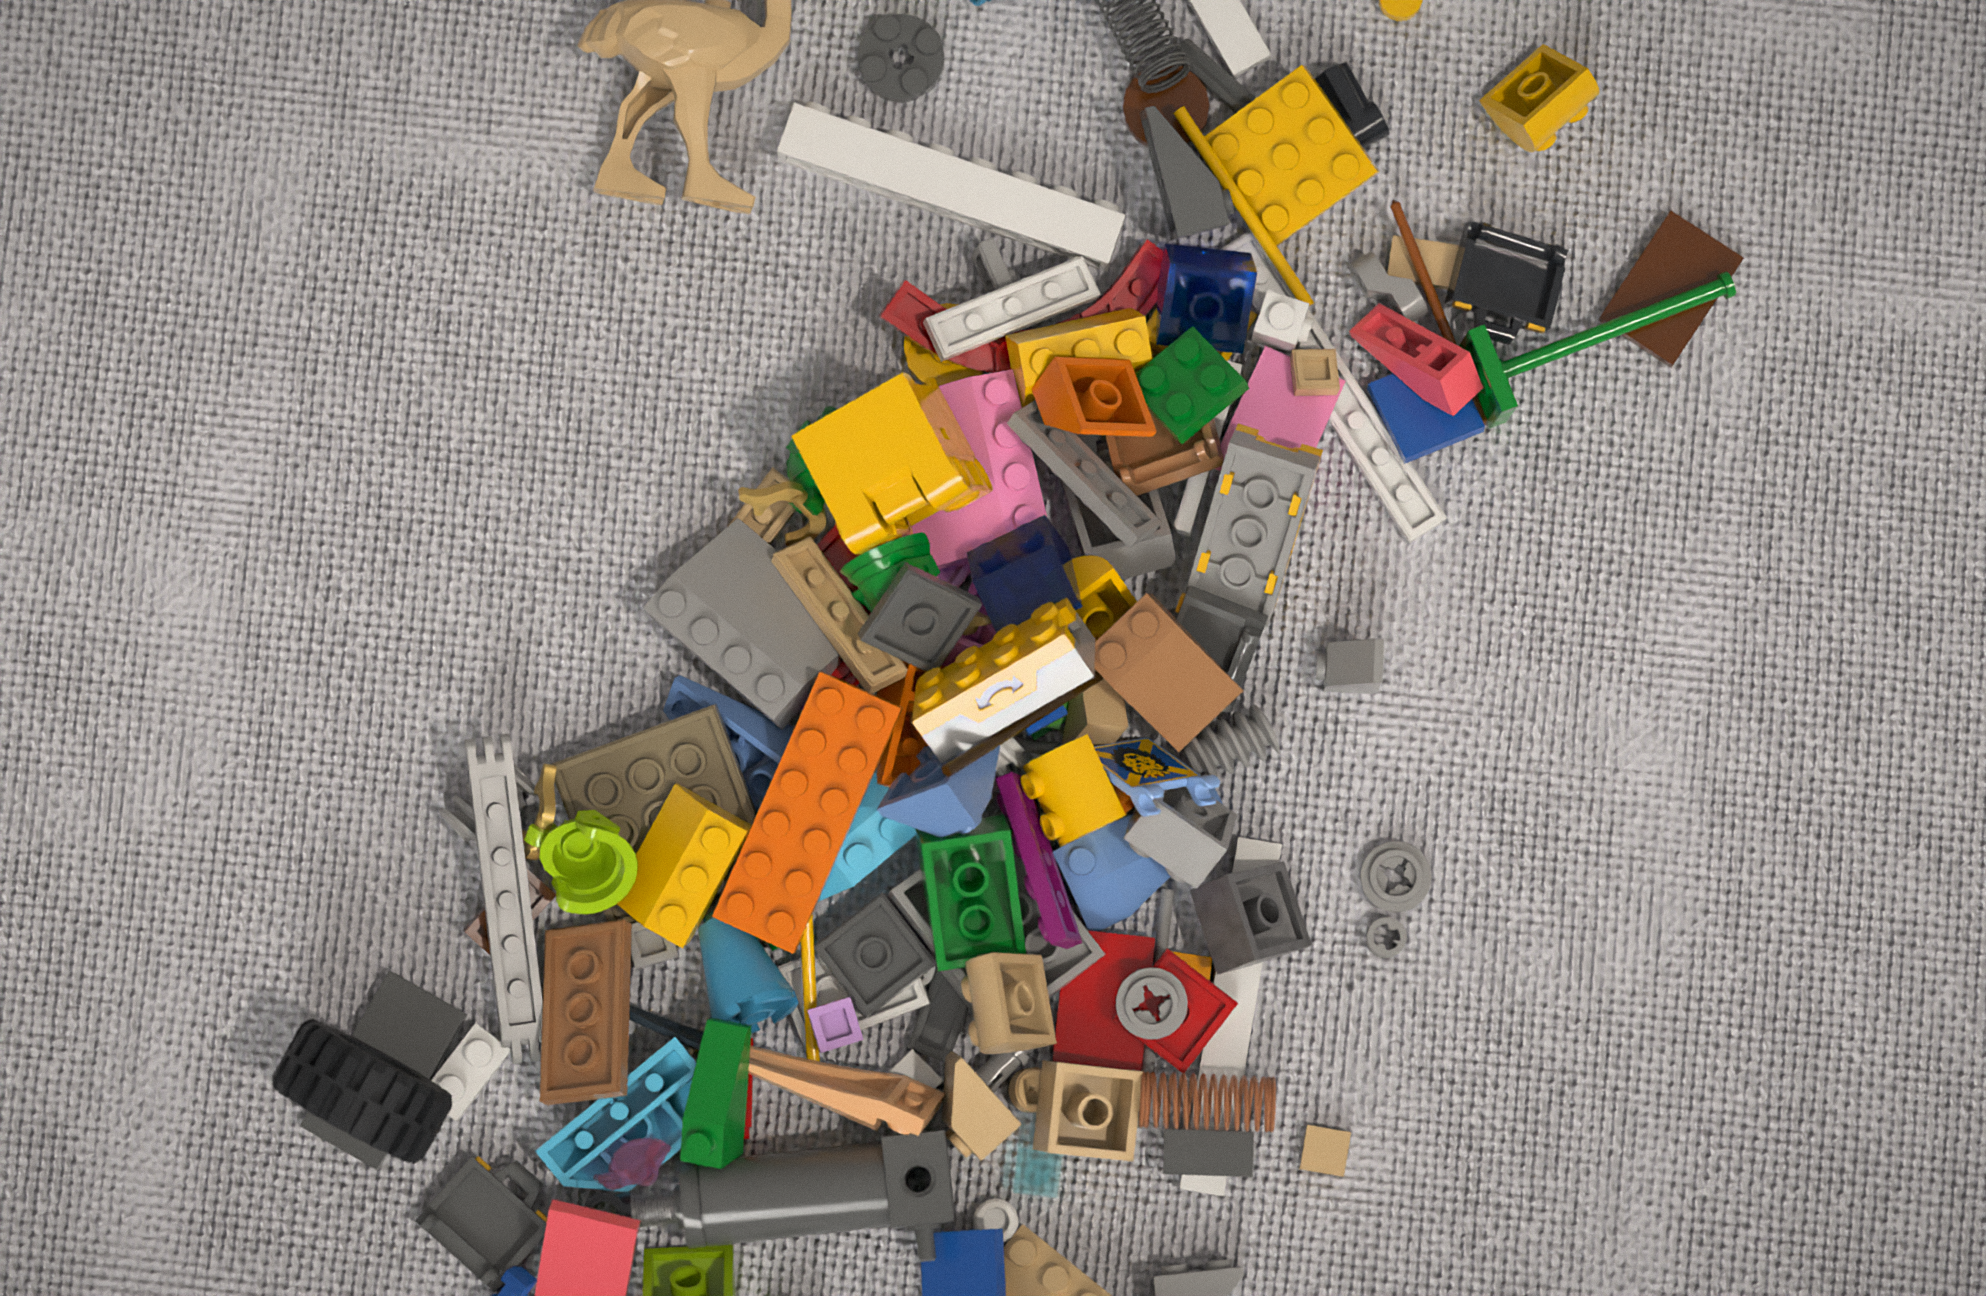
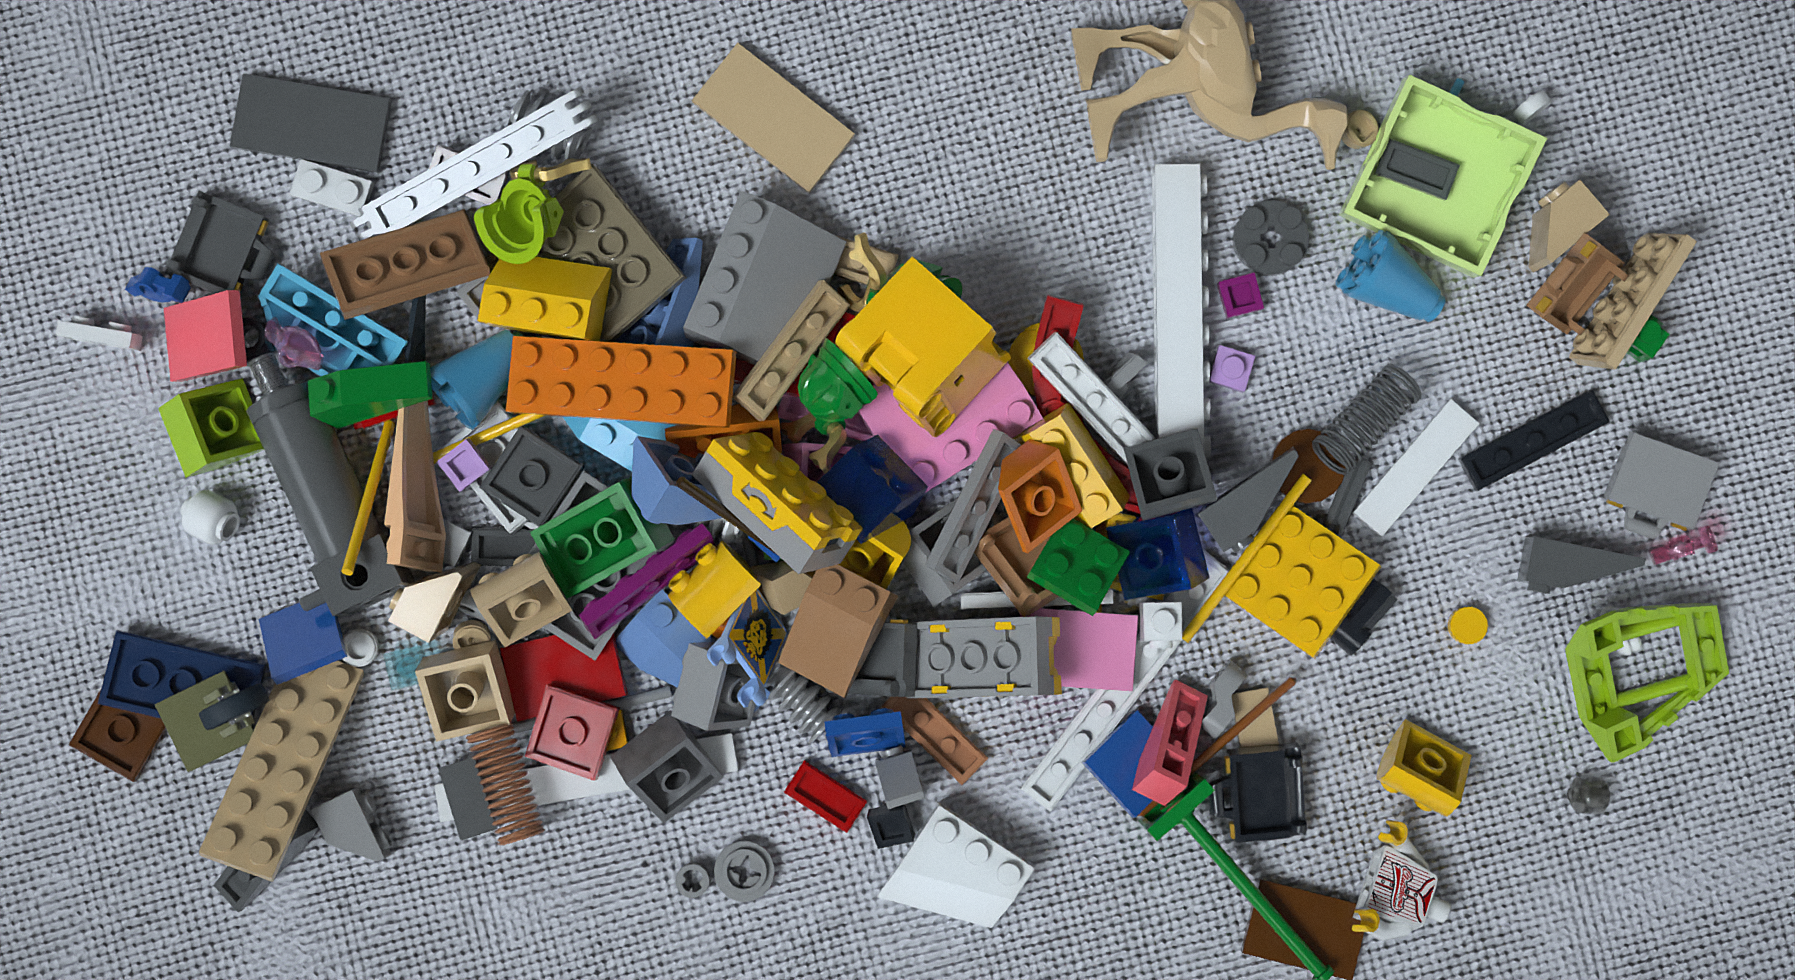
camera: 70 degrees right, 5 degrees up
(362, 1091) = (268, 107): black tyre -> none
(569, 551) = (773, 118): none -> tan tile
(834, 1140) = (368, 498): none -> yellow axle
(919, 618) = (806, 415): dark grey tile -> none
(953, 112) = (1240, 295): none -> magenta plate
(1029, 150) = (1231, 368): none -> lavender plate
(1124, 252) = (1170, 474): none -> dark grey brick
(1171, 1011) = (549, 711): light grey gear -> none
(1291, 685) = (864, 734): none -> blue plate
(1314, 372) = (1129, 663): tan tile -> none
(1319, 613) = (938, 736): none -> nougat tile
(1325, 1150) = (505, 890): tan tile -> none
(1344, 759) = (825, 796): none -> red tile
(1401, 696) = (890, 826): none -> black plate
(1477, 642) = (957, 871): none -> white wedge
(1660, 172) = (1398, 889): none -> white torso

